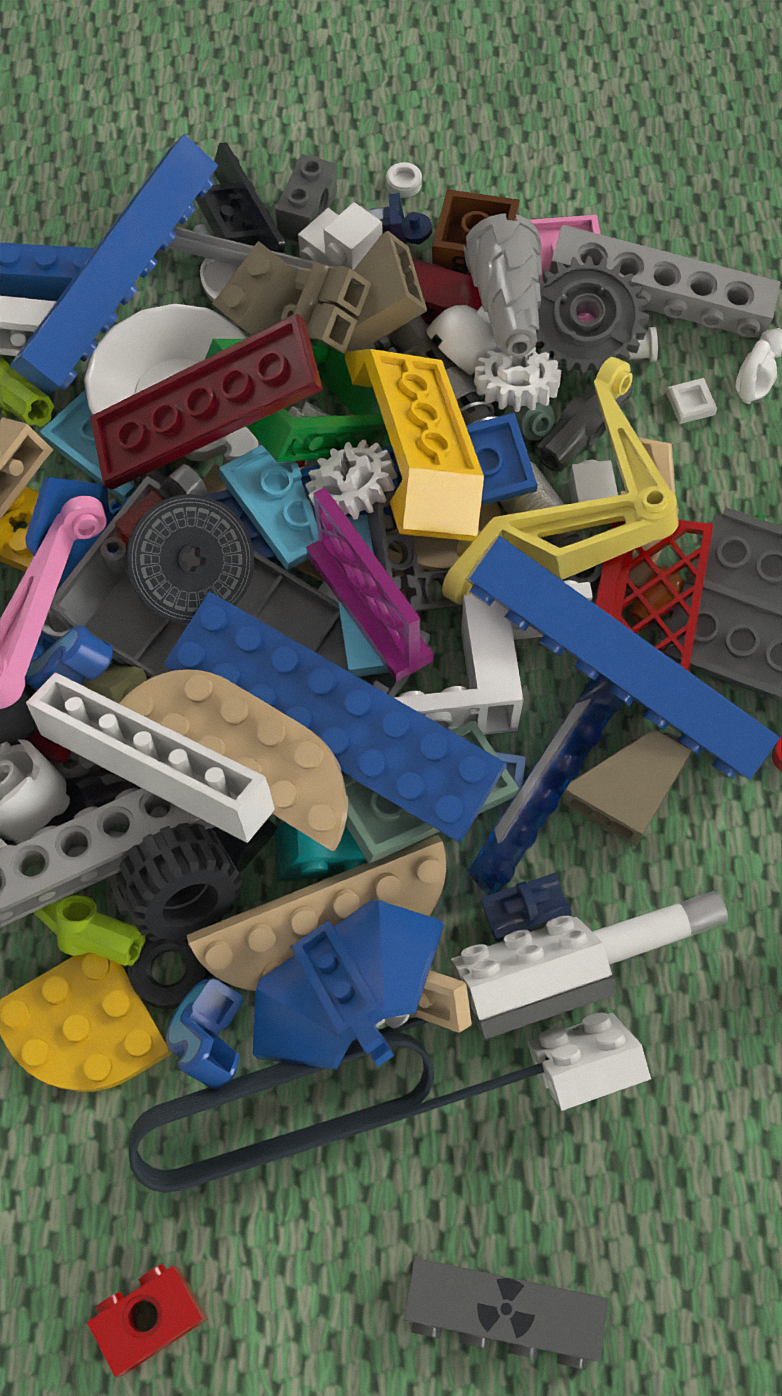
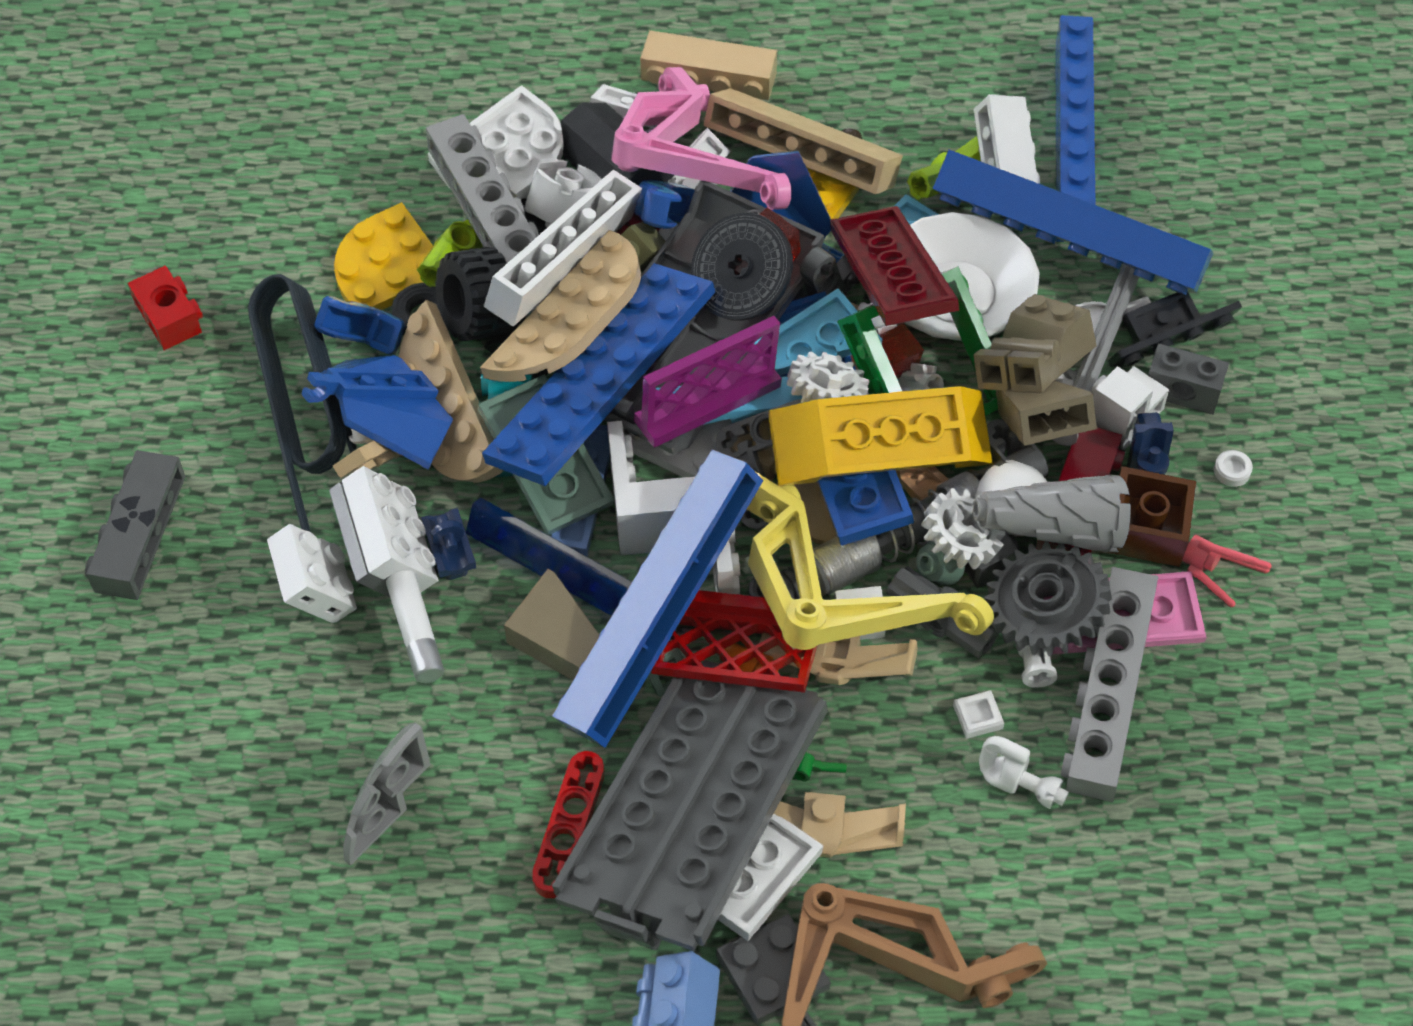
camera: 90 degrees right, 10 degrees down
(513, 193) = (1205, 555): none -> coral plant

